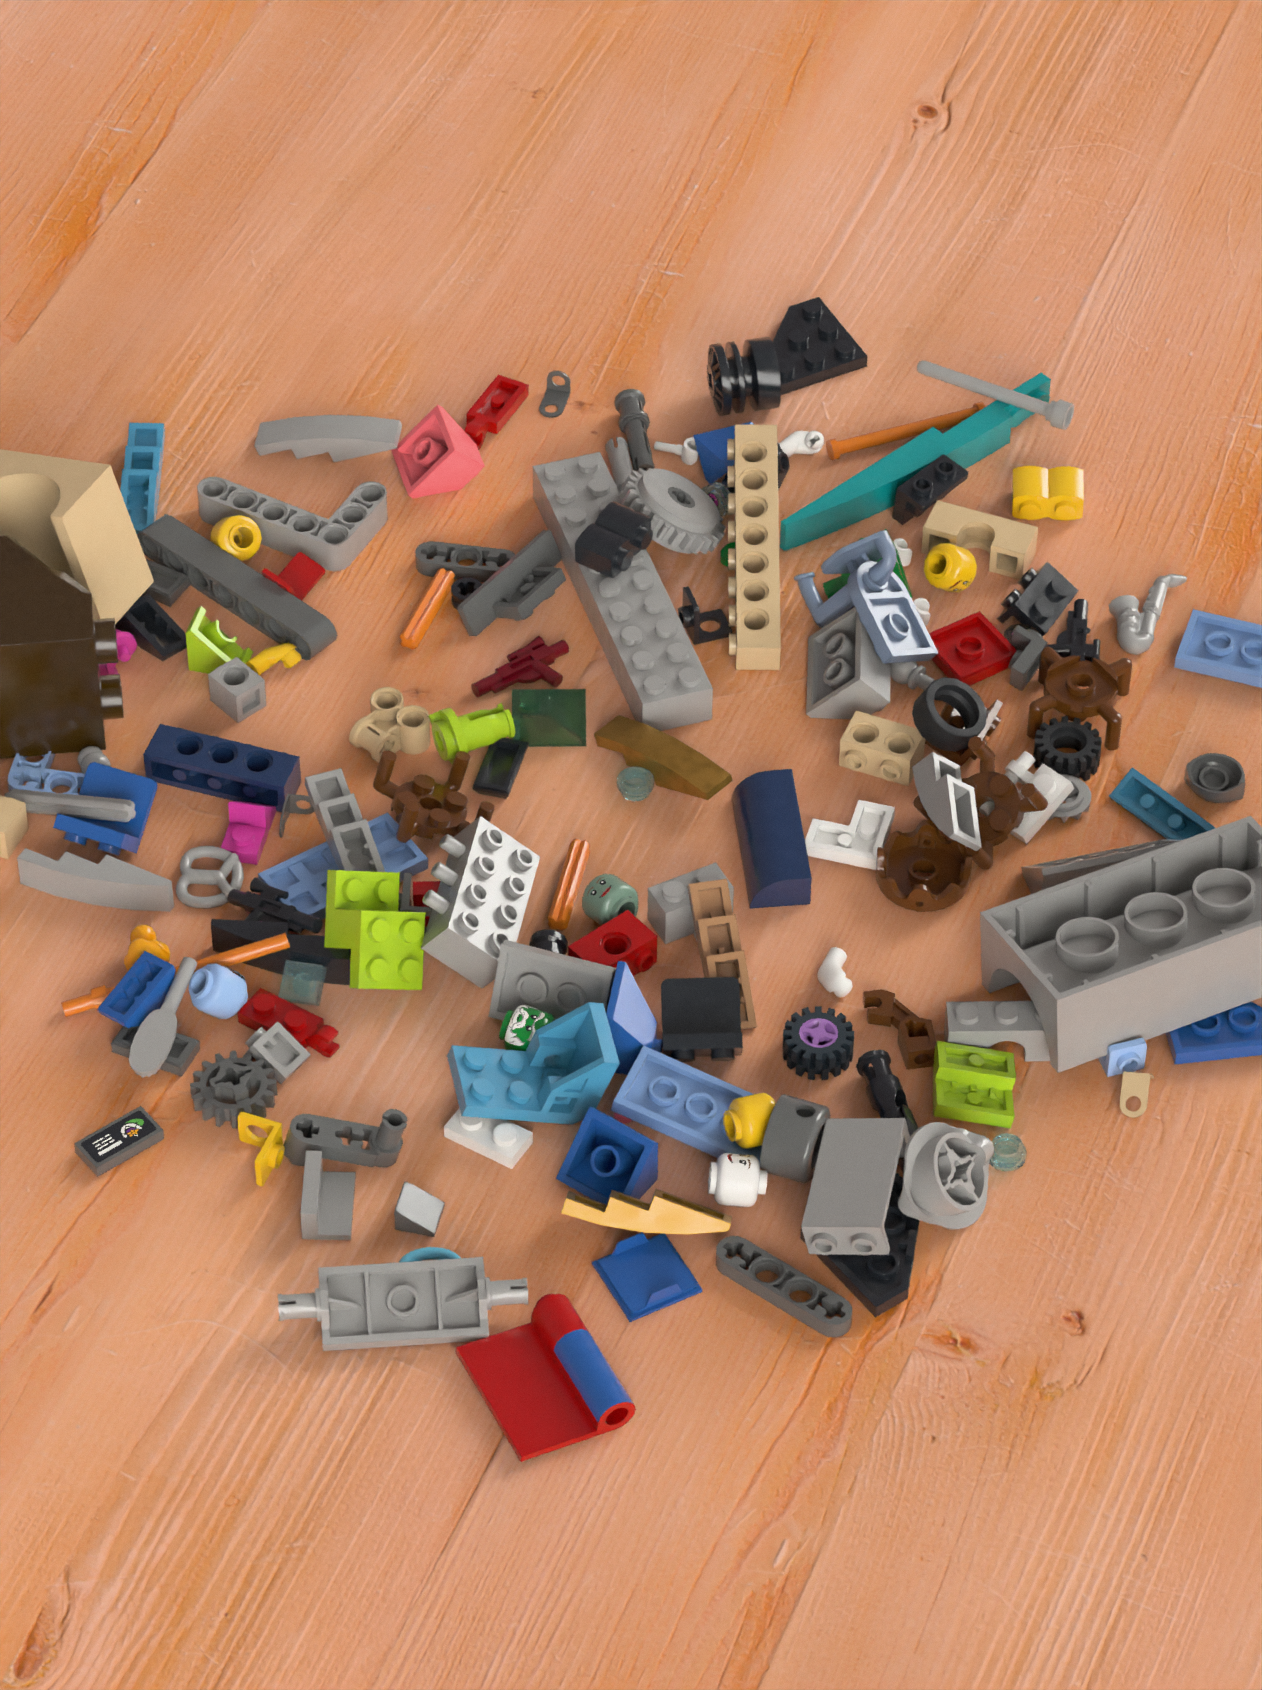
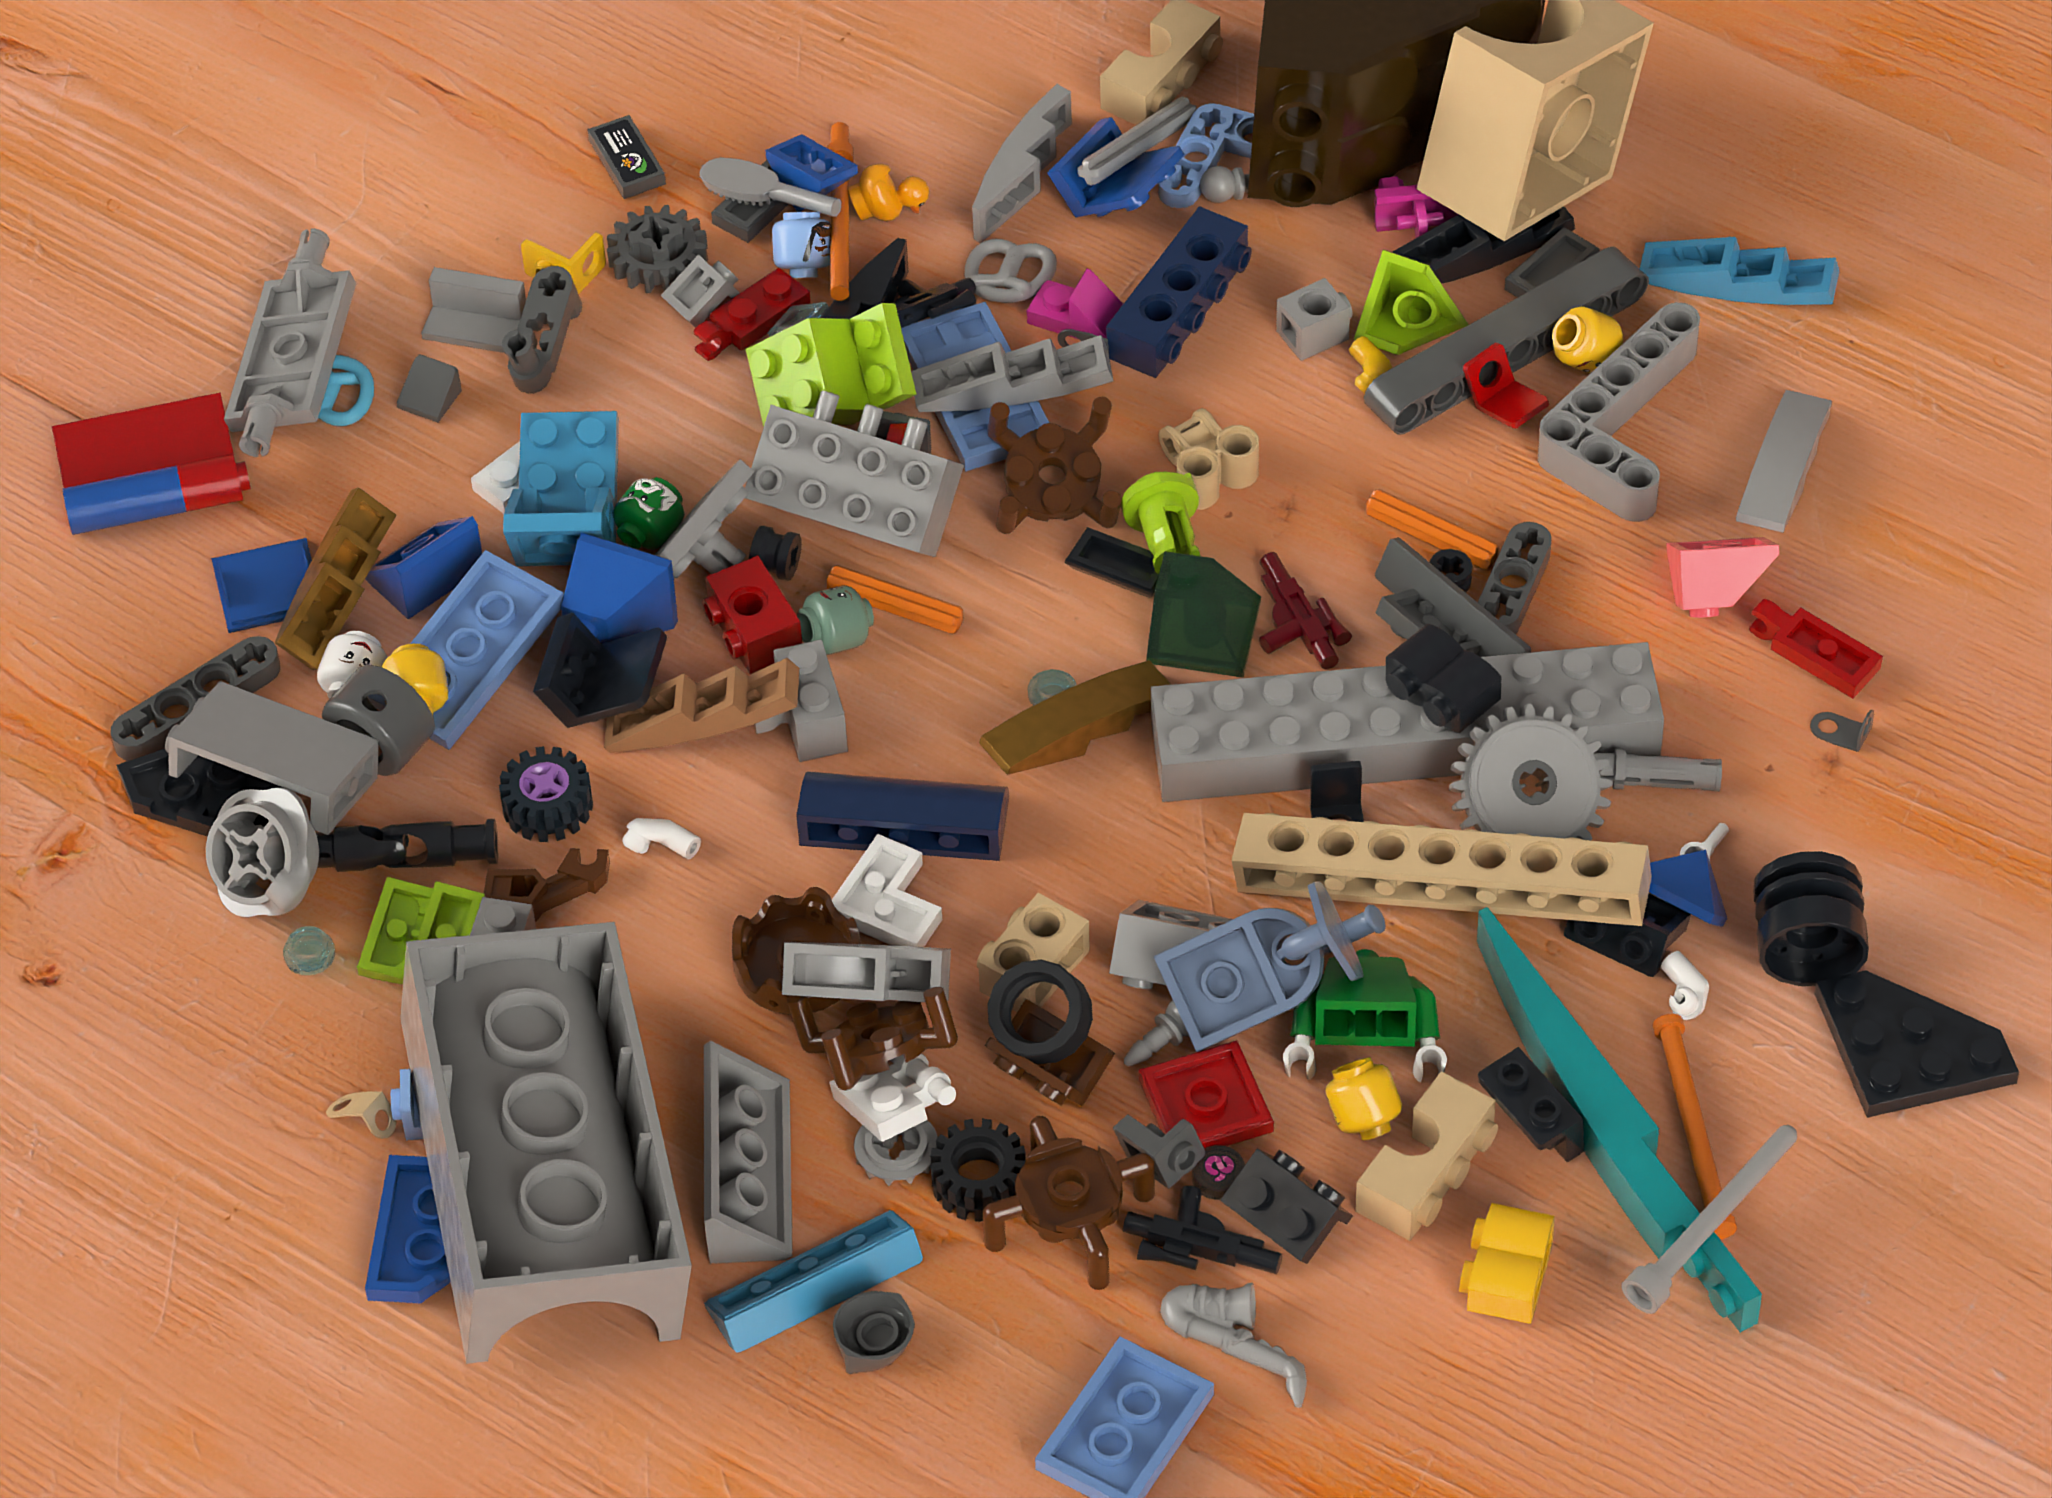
camera: 105 degrees right, 5 degrees up
(634, 425) = (1672, 799): dark grey pin -> none

